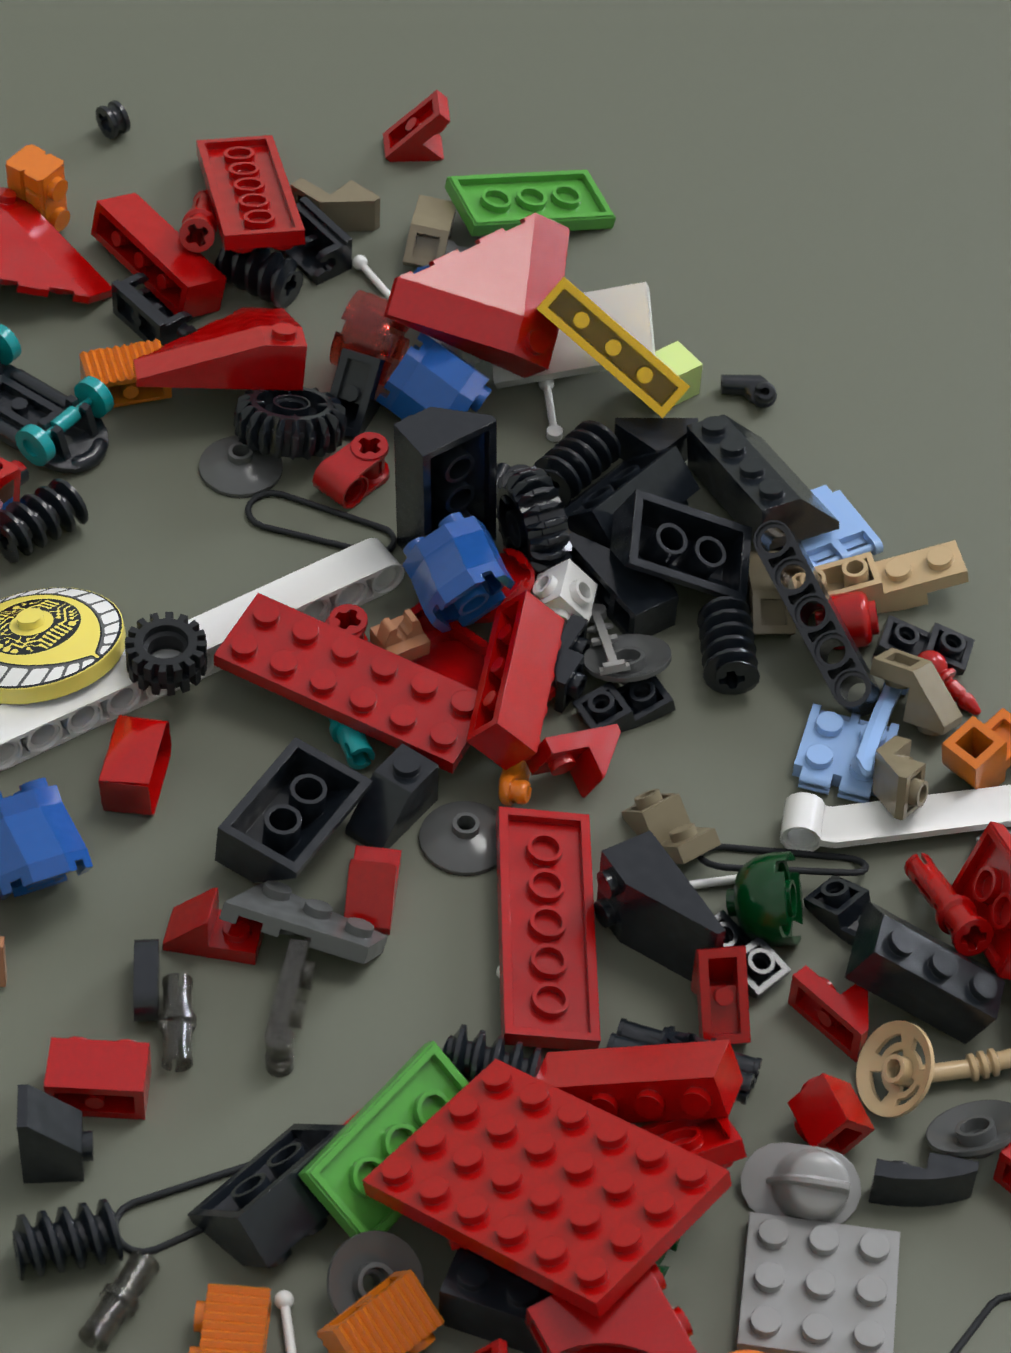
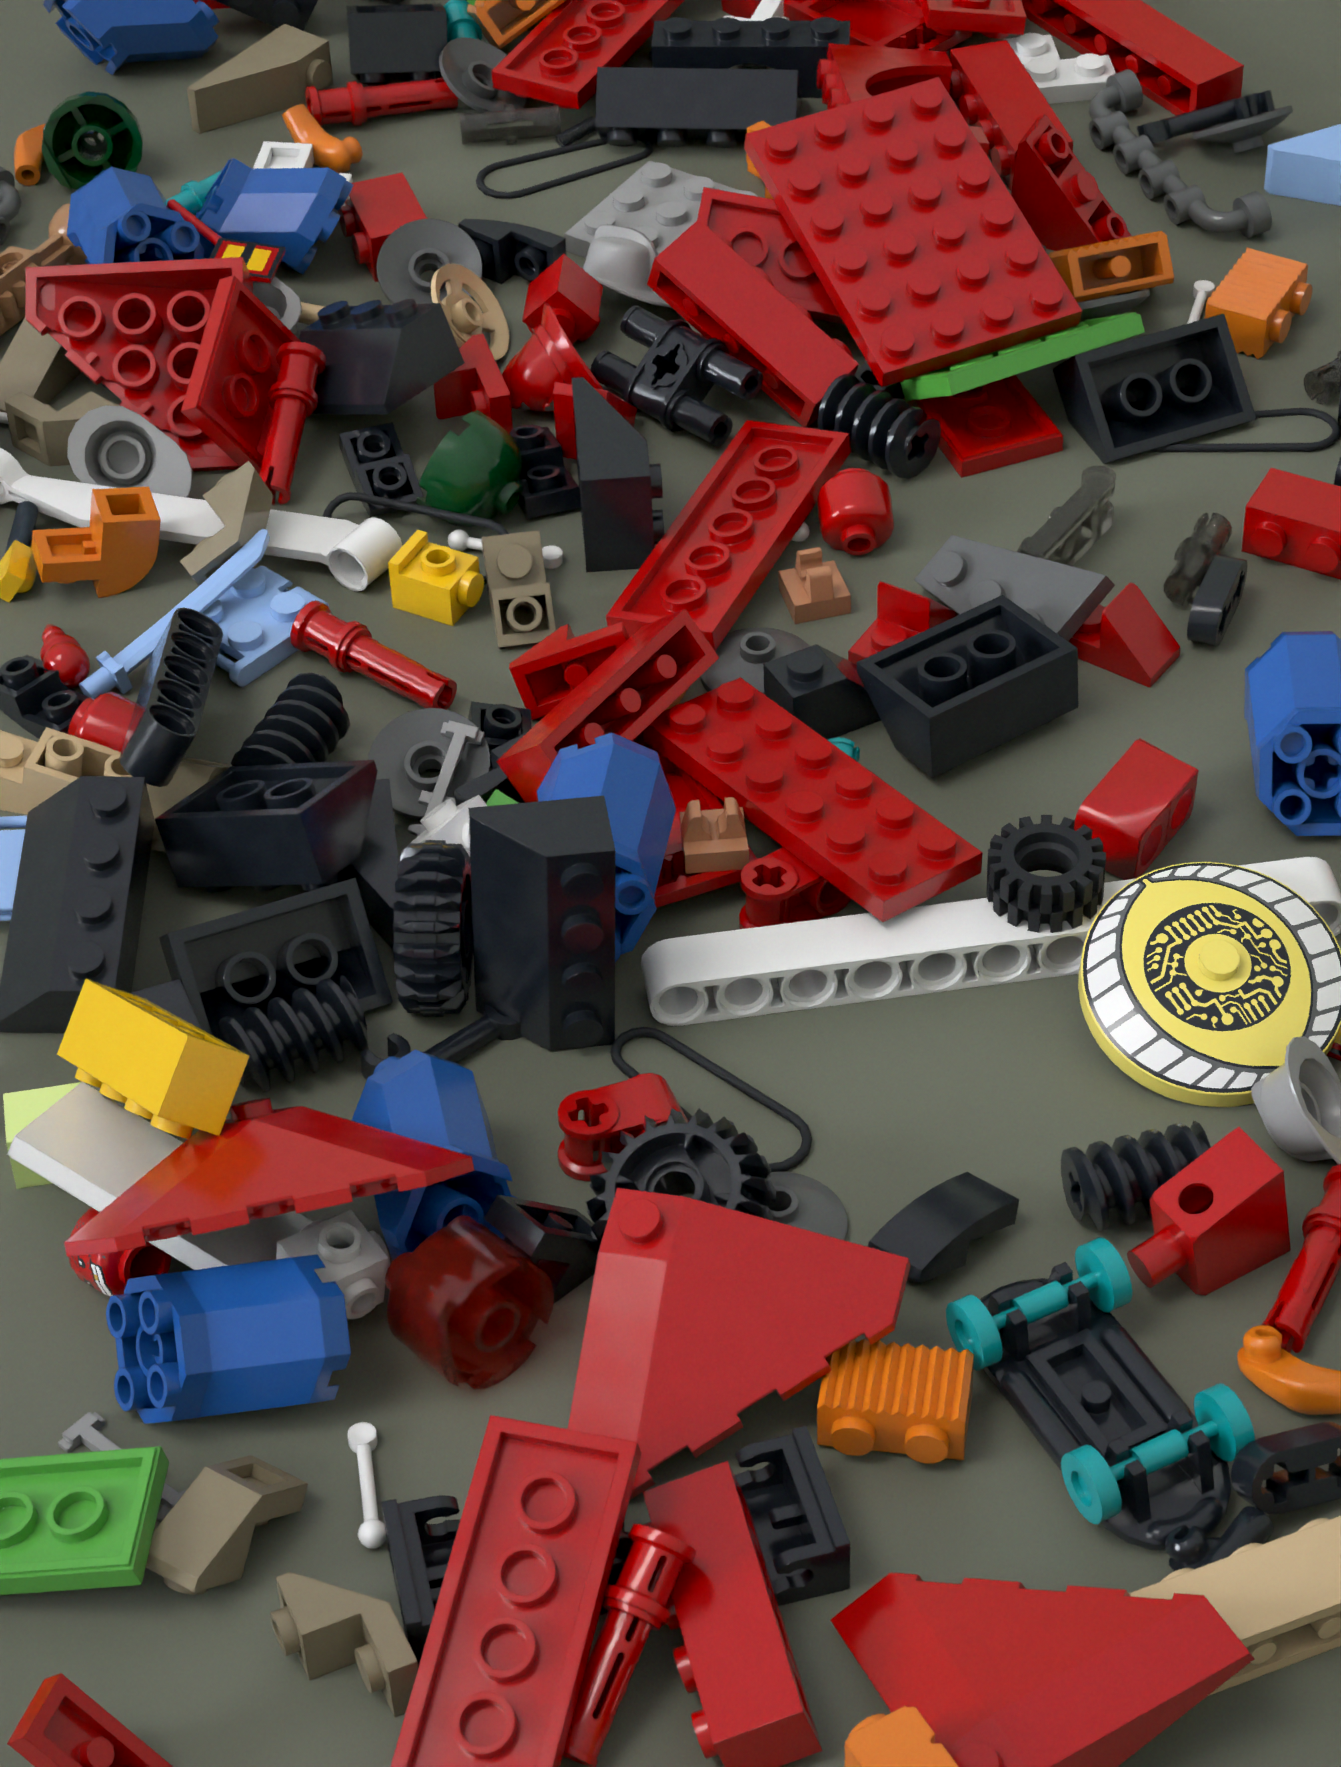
camera: 150 degrees left, 5 degrees down
(140, 470) = (942, 1221): none -> black slope
(458, 908) = (814, 588): none -> nougat tile
(462, 974) = (855, 509): none -> red head
(735, 814) = (434, 580): none -> yellow brick
(748, 740) = (353, 649): none -> red pin
(786, 1039) = (542, 362): none -> red piece
(928, 700) = (118, 626): dark tan slope -> none

